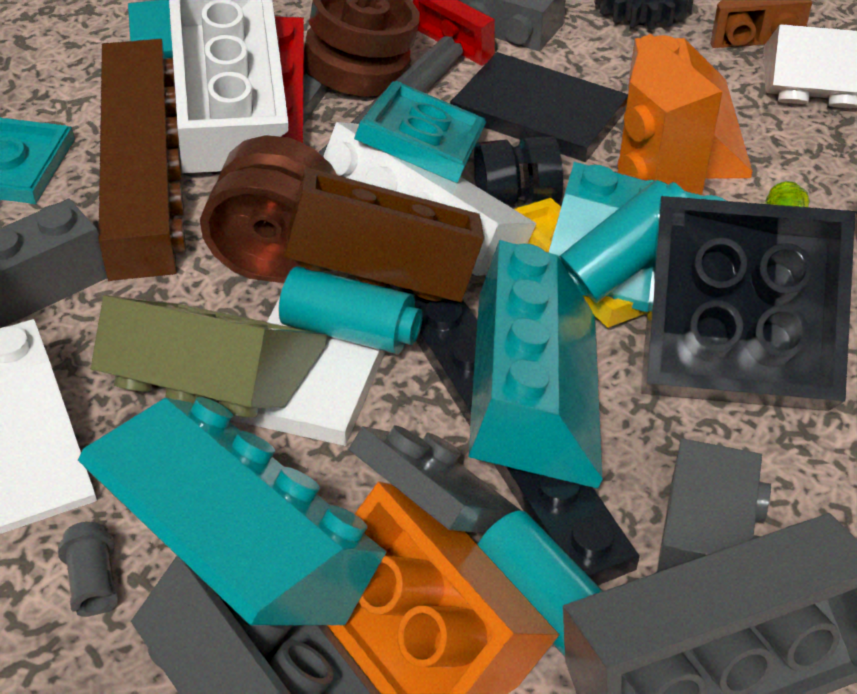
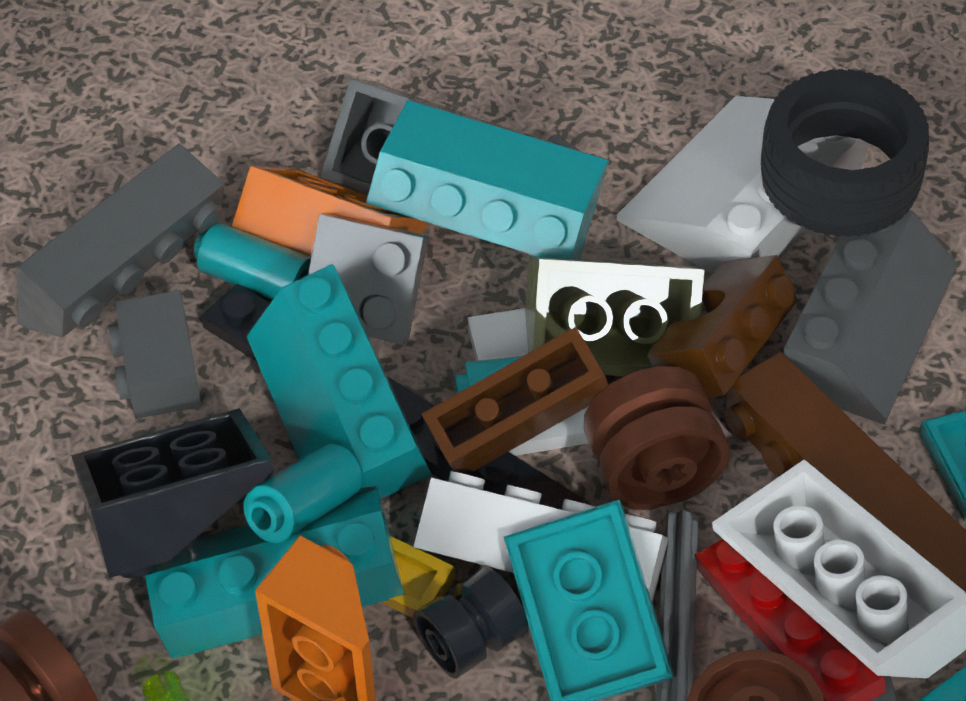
camera: 155 degrees right, 5 degrees up
(165, 246) = (744, 308): none -> reddish brown arch

